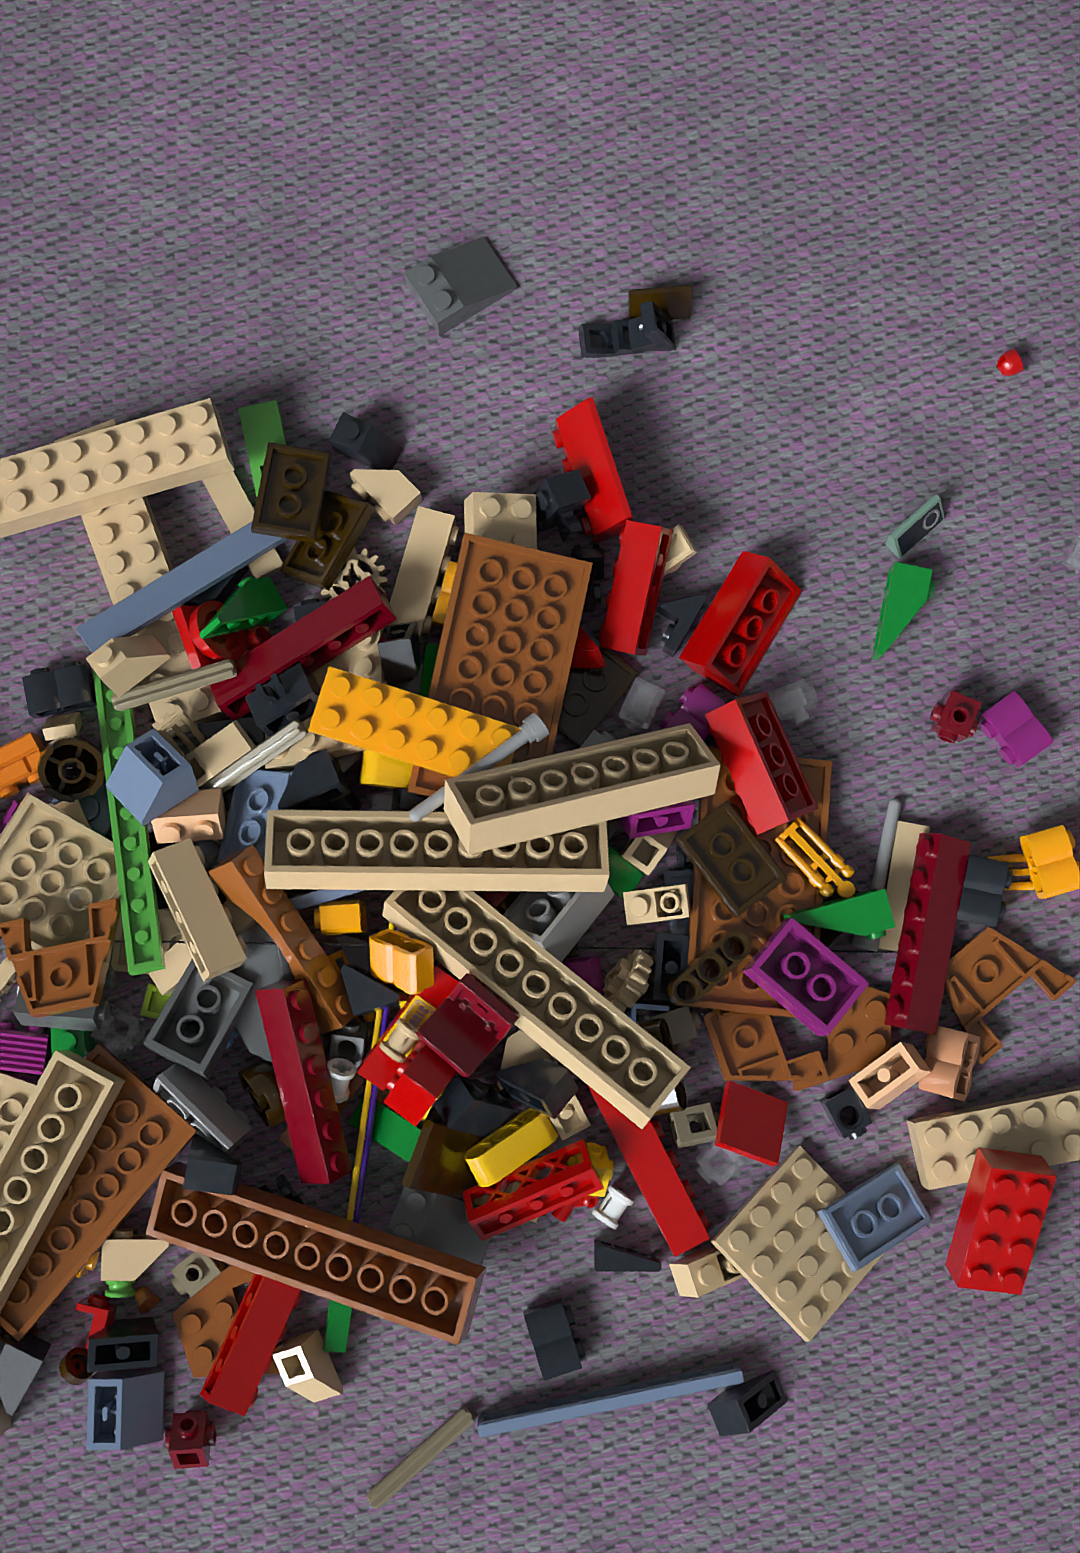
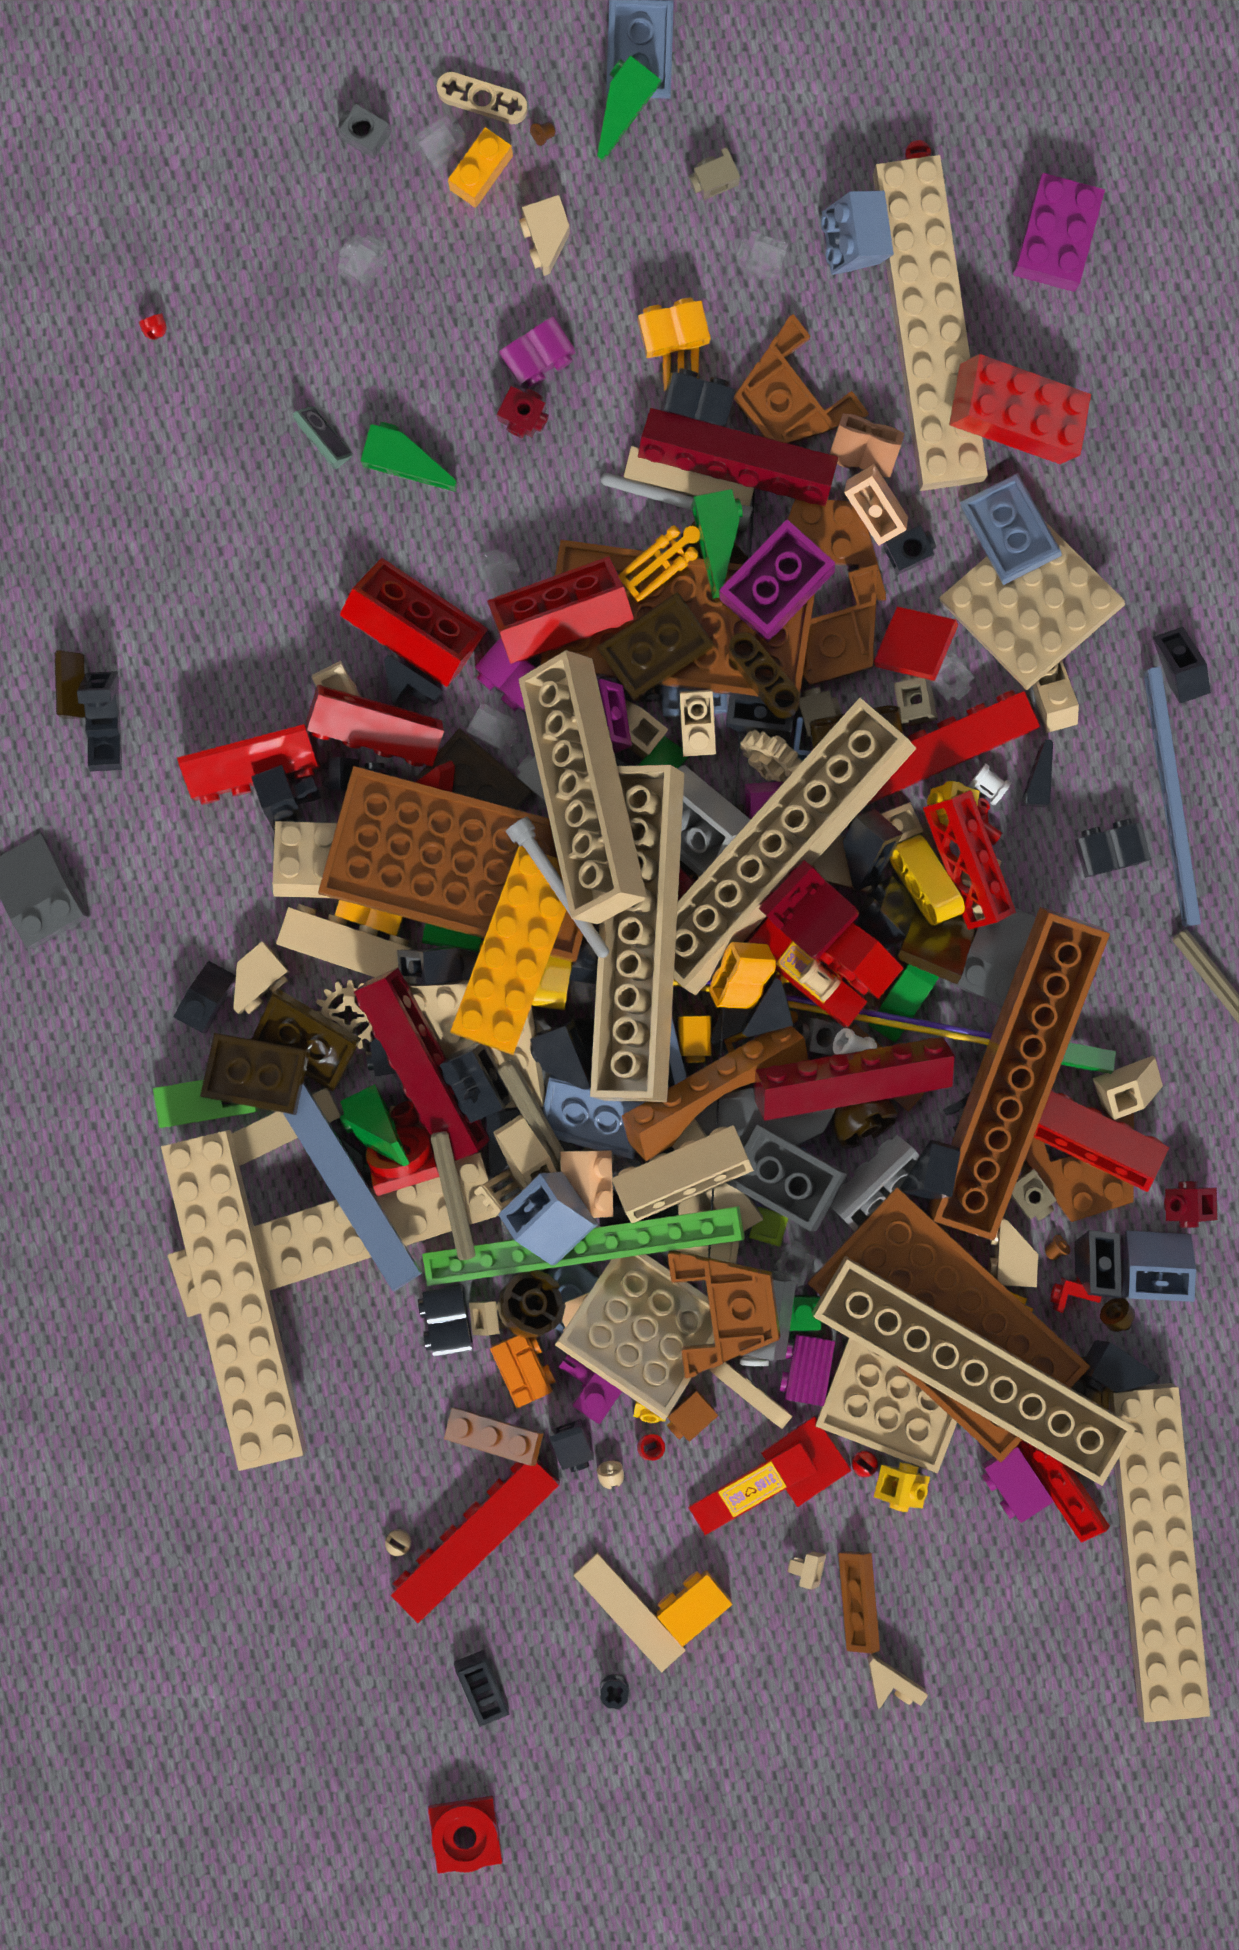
camera: 90 degrees left, 5 degrees up
(120, 1289) = (1045, 1271): bright green bush -> none
(127, 661) = (427, 1240): tan slope -> none

